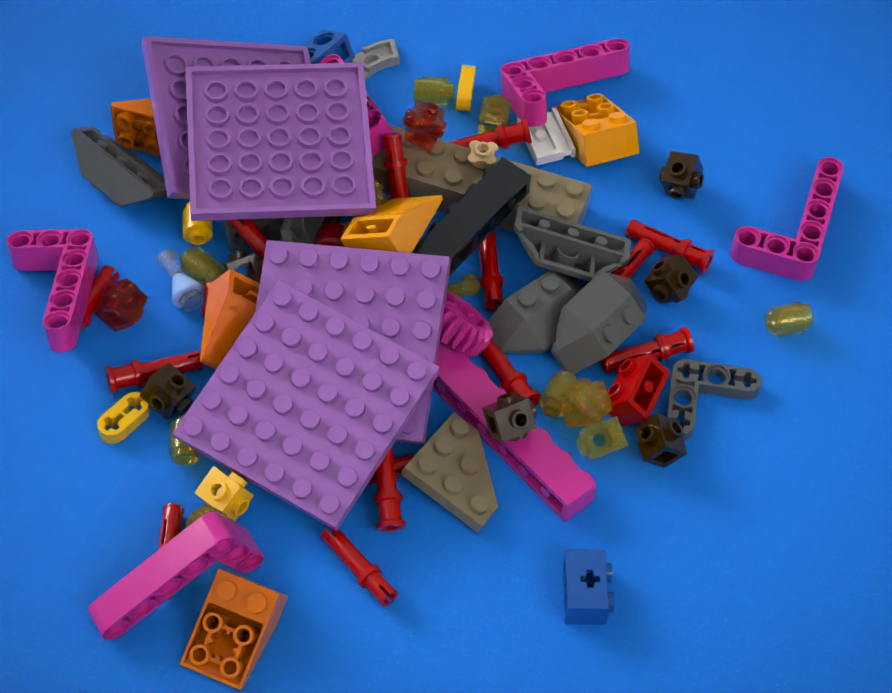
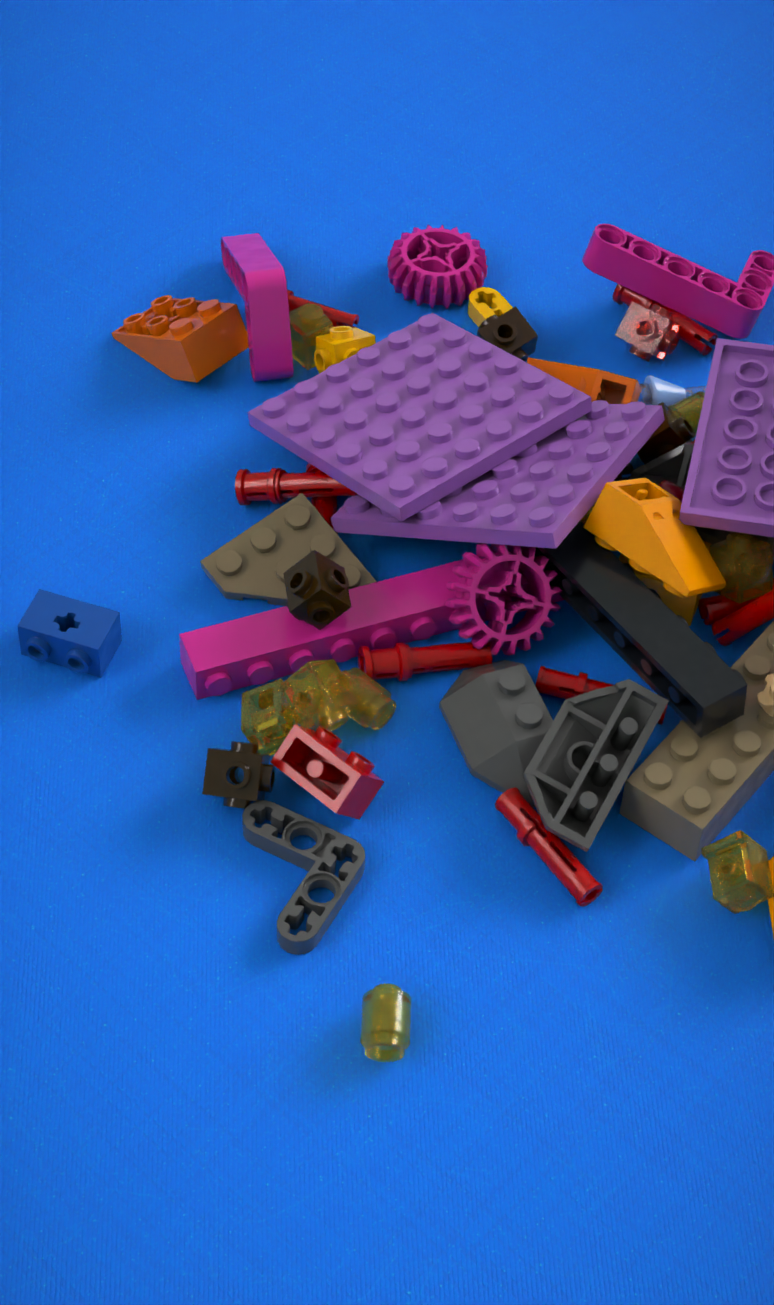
camera: 110 degrees right, 5 degrees down
(80, 478) = (436, 266): none -> dark pink gear
(139, 373) = (548, 326): red pin -> none
(367, 574) = (194, 452): red pin -> none
(467, 287) = (576, 652): clear yellow arm -> none
(594, 172) = (739, 872): none -> clear yellow brick
(597, 321) = (465, 775): dark grey wedge -> none
(661, 347) = (397, 840): red pin -> none
(671, 279) = (506, 885): dark brown brick -> none
(682, 175) = (706, 974): dark brown brick -> none
(695, 255) = (565, 933): red pin -> none
(787, 255) = (563, 1122): dark pink beam -> none

